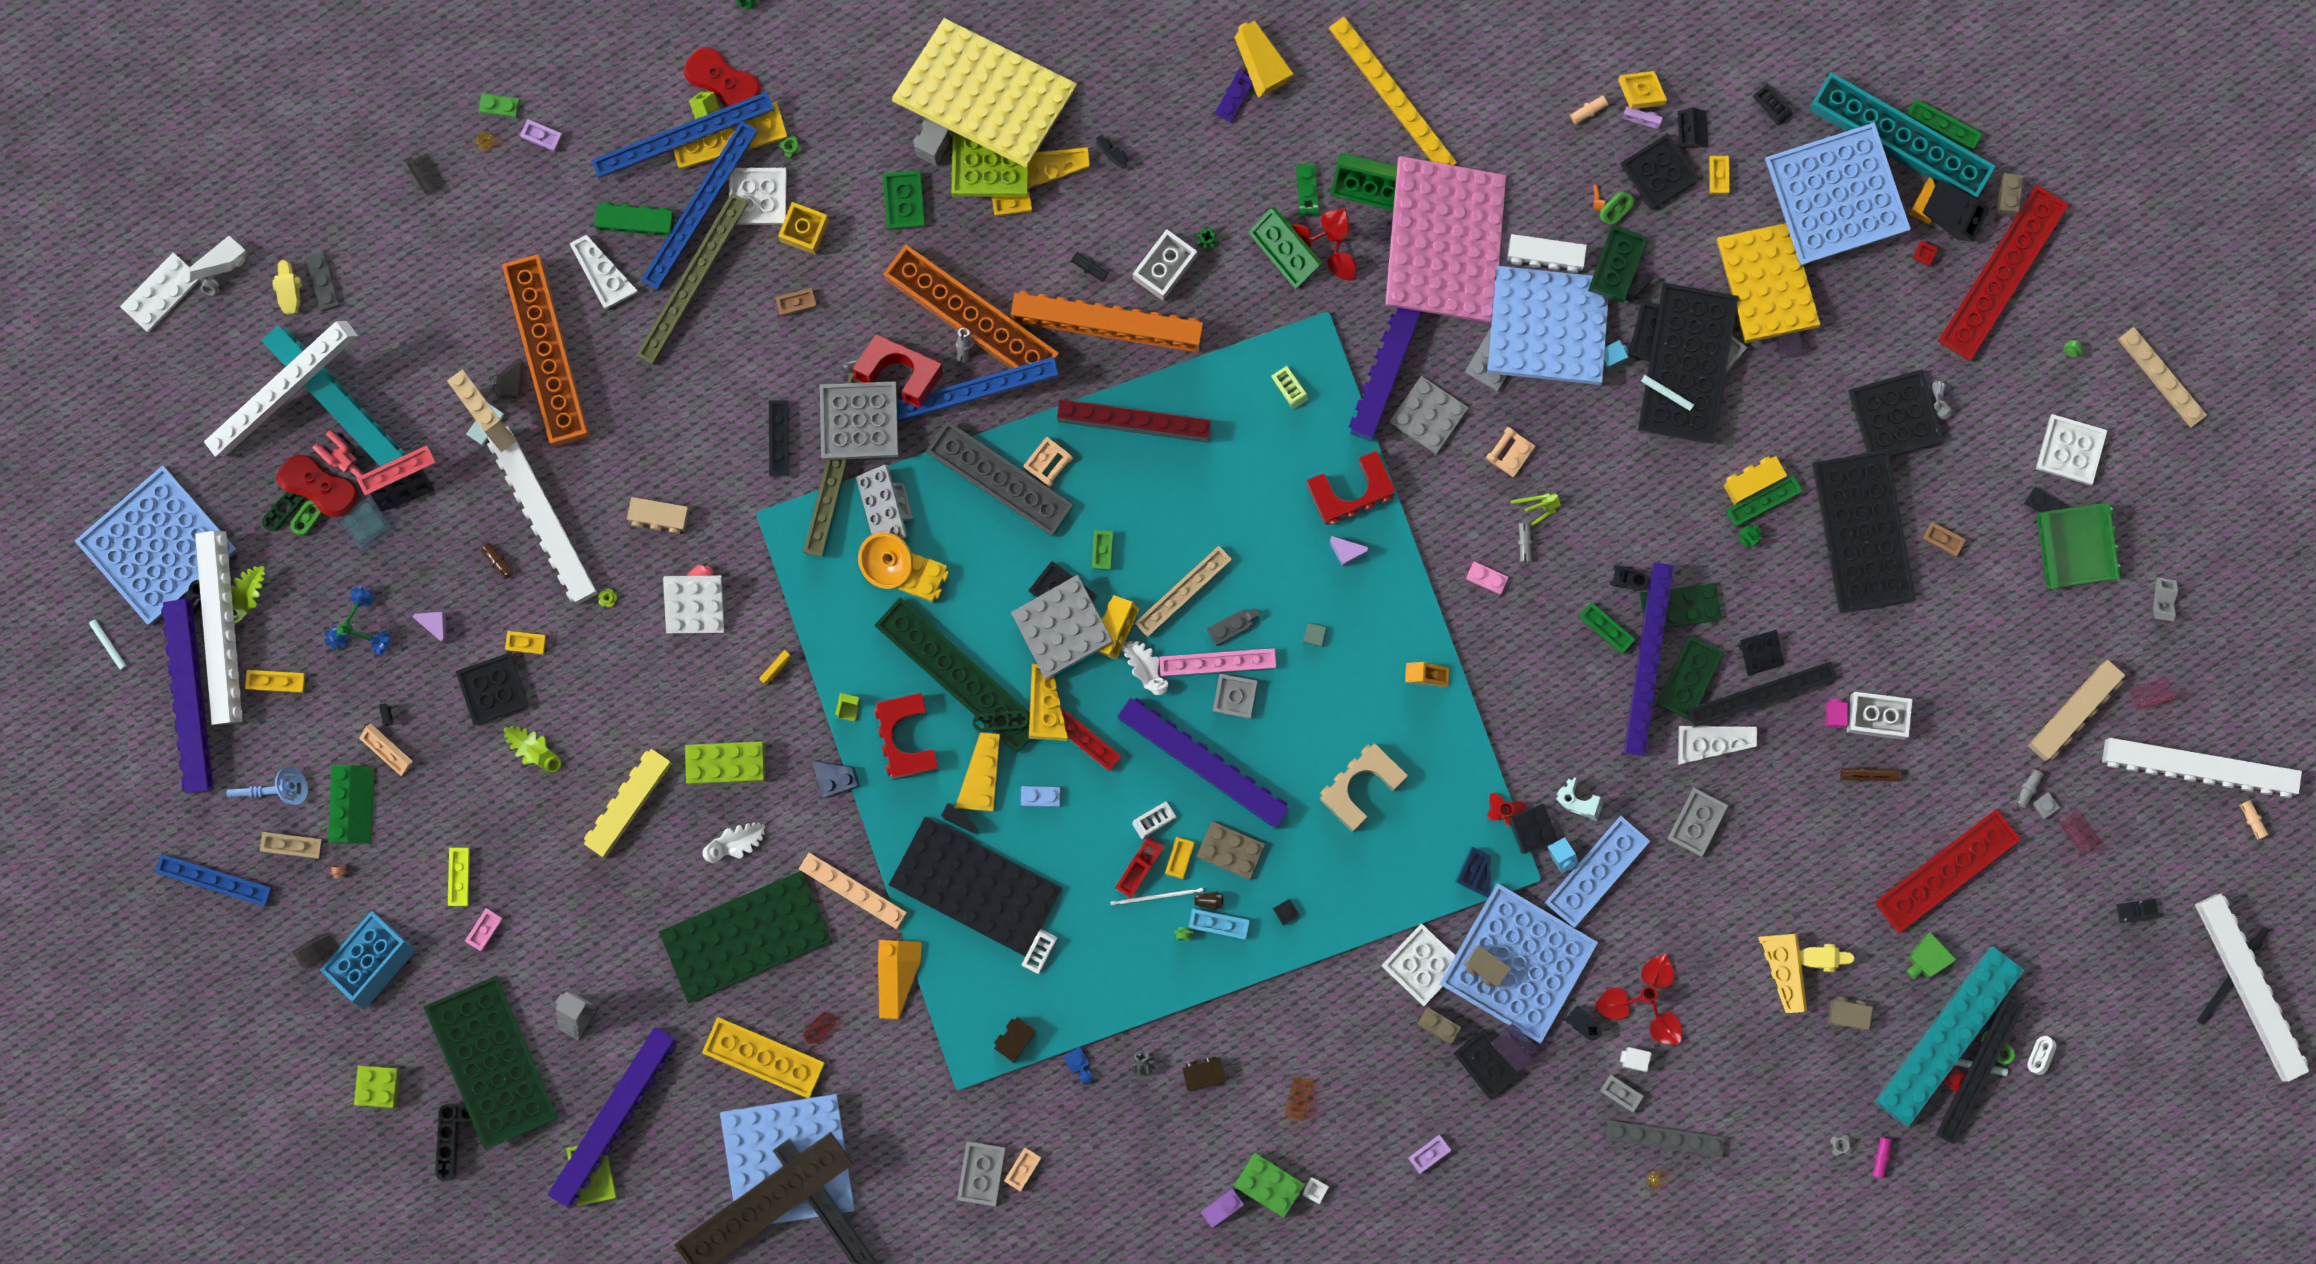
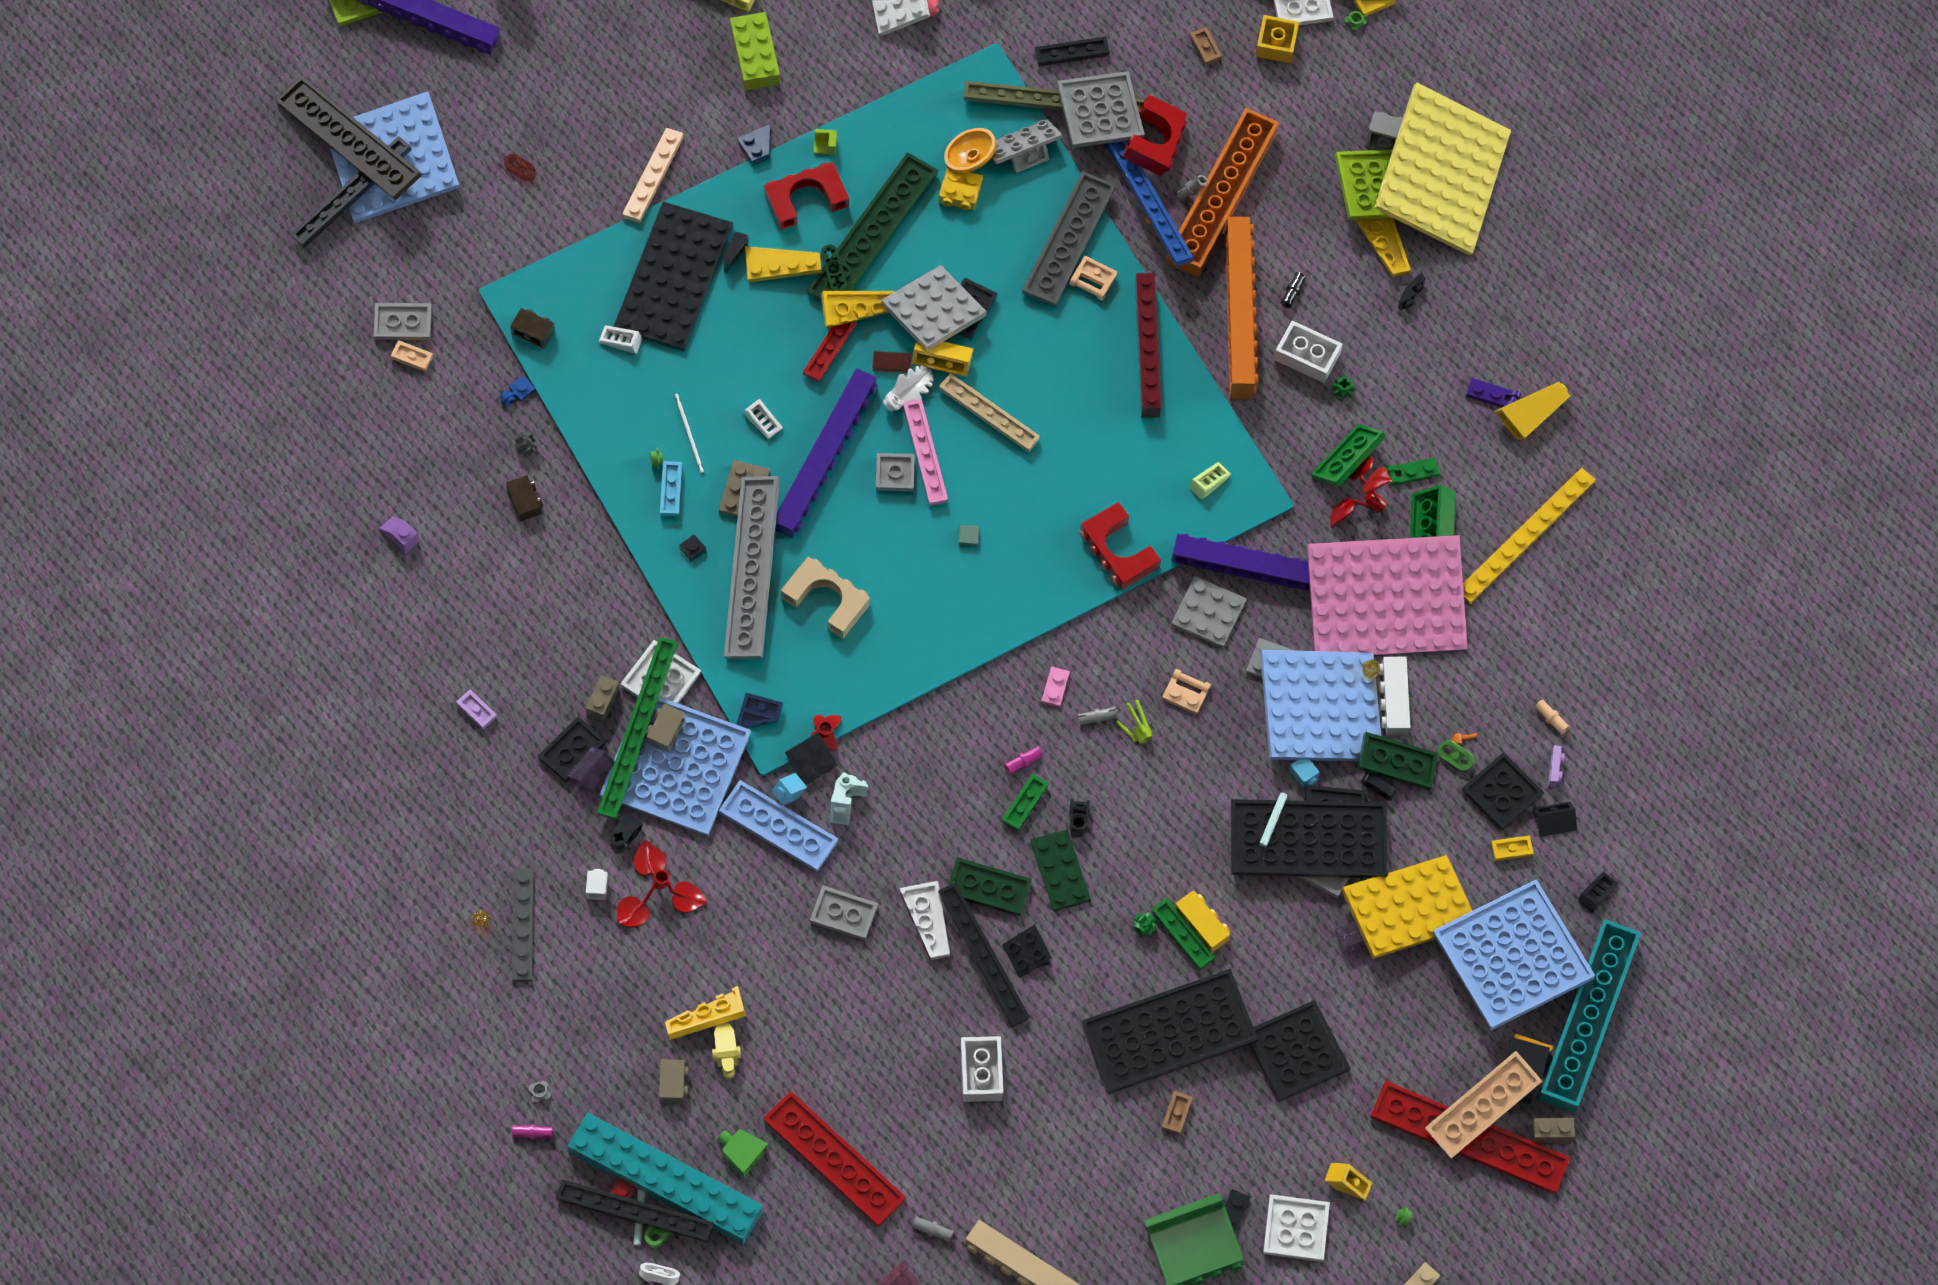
camera: 75 degrees right, 15 degrees down
(734, 843) = (682, 70): white plant -> none
(745, 936) = (596, 94): dark green plate -> none
(763, 1057) = (485, 125): yellow plate -> none
(775, 668) = (852, 79): yellow tile -> none
(896, 974) = (584, 219): light orange wedge -> none
(903, 200) = (1324, 121): green plate -> none
(1011, 205) = (1338, 213): yellow plate -> none
(1040, 796) = (768, 319): light blue plate -> none
(1102, 550) = (1016, 336): bright green plate -> none
(1109, 680) = (891, 361): none -> clear red tile
(1139, 866) = (715, 412): red slope -> none
(1179, 858) = (729, 447): yellow tile -> none
(1209, 900) = (692, 478): dark brown cone -> none
(1232, 626) = (964, 461): dark grey hinge -> none
(1269, 1185) = (426, 568): bright green brick -> none
(1293, 1114) = (505, 591): clear orange slope -> none
(1315, 1190) = (426, 612): white plate -> none
(1323, 855) = (752, 567): none -> light grey plate
(1347, 551) = (1055, 551): lavender slope -> none
(1427, 674) = (947, 640): light orange slope -> none
(1481, 995) = (637, 728): none -> green plate
(1522, 267) = (1371, 664): none -> clear yellow plate
(1561, 622) = (1023, 760): none -> dark pink pin
(1621, 1093) = (561, 877): light grey plate -> none
(1642, 90) = (1582, 761): yellow plate -> none
(1648, 659) = (999, 839): dark purple brick -> none
(1836, 714) = (977, 1027): dark pink brick -> none
(1870, 774) = (919, 1064): reddish brown pin -> none
(1924, 253) = (1473, 1057): red plate -> none
(1942, 411) = (1330, 1088): light grey piece -> none
(1944, 125) = (1614, 1059): green plate -> none
(1984, 252) = (1483, 1104): none -> light nougat plate
(2032, 393) = (1348, 1180): none -> yellow slope
(2045, 805) = (918, 1249): light grey plate -> none

